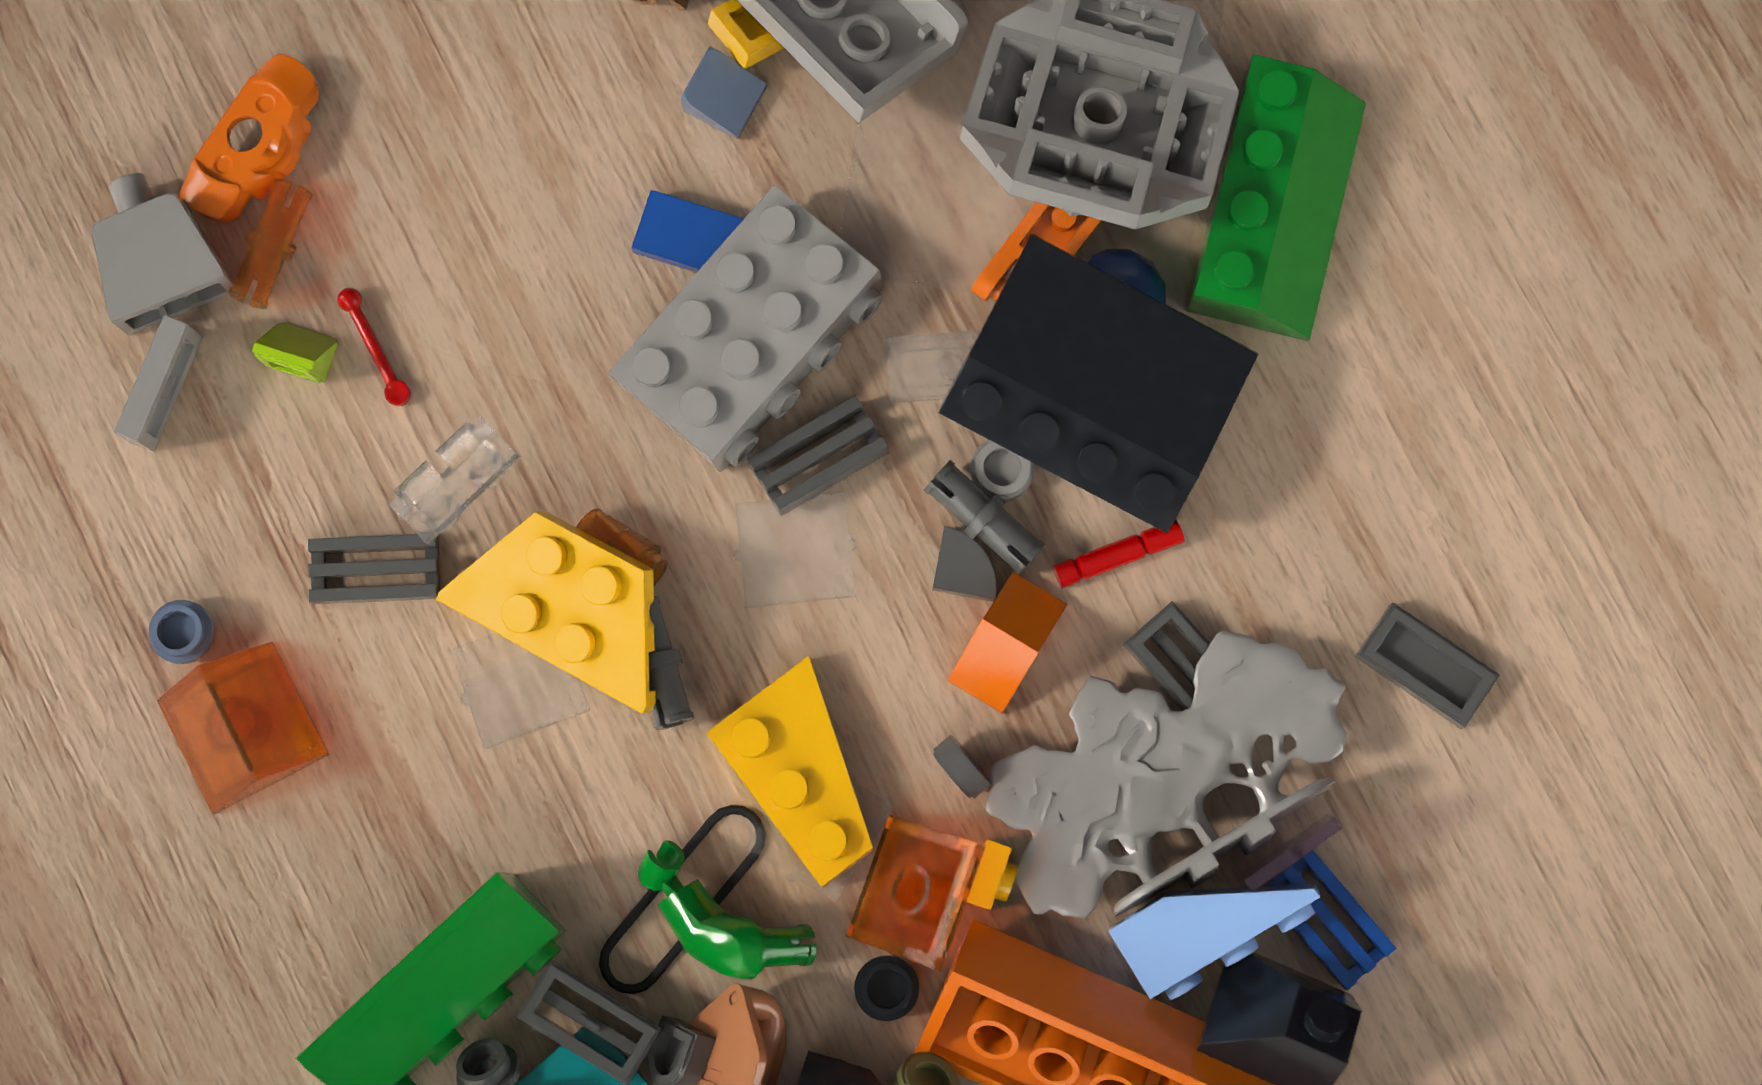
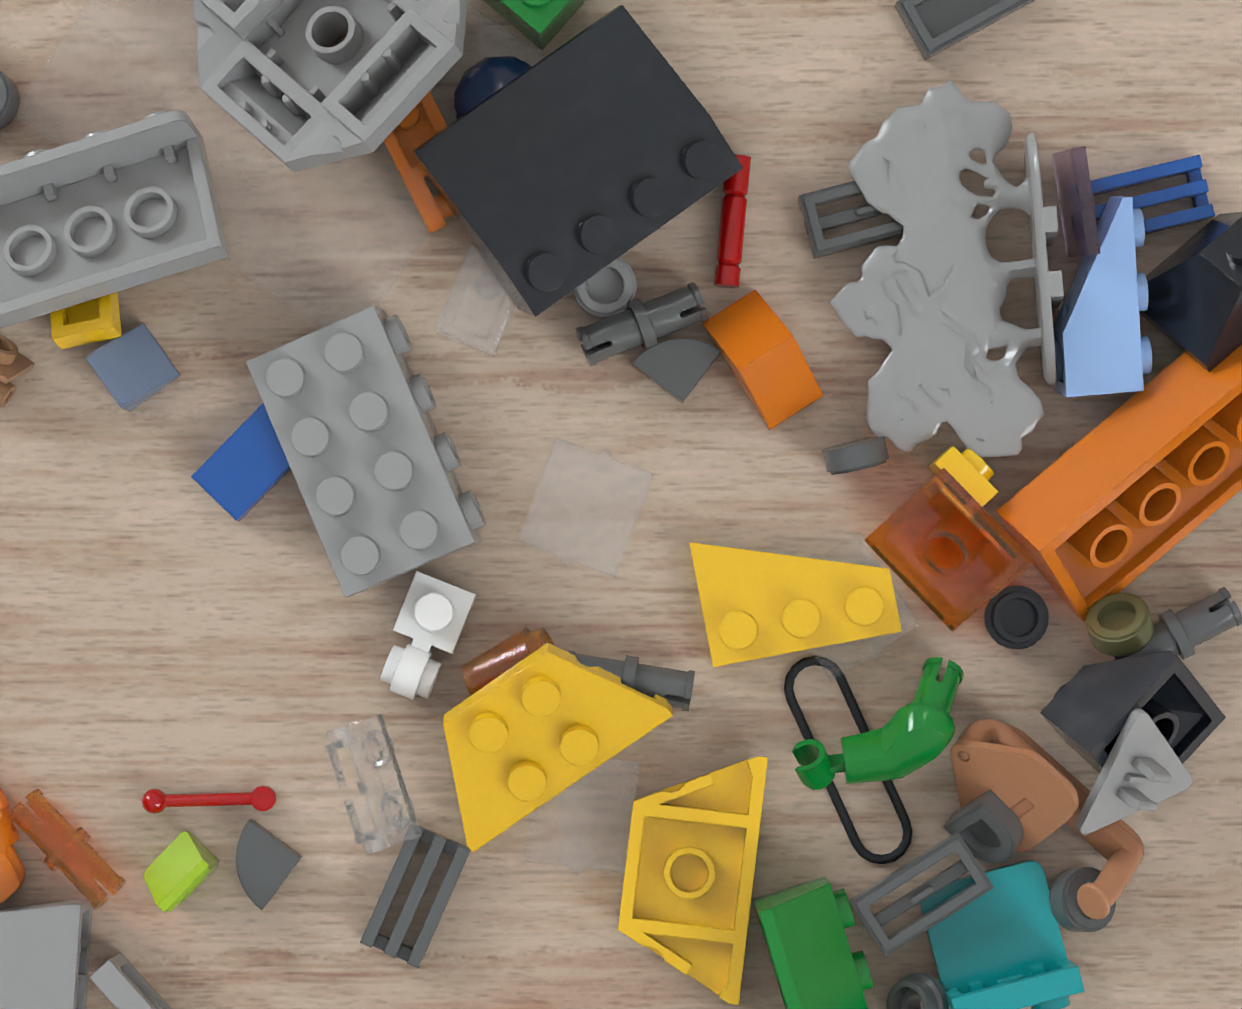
camera: 65 degrees left, 5 degrees up
(339, 420) = (263, 863): none -> dark grey tile
(512, 807) = (695, 873): none -> yellow wing
(629, 461) = (435, 617): none -> white plate
(806, 435) = (487, 445): dark grey tile -> none

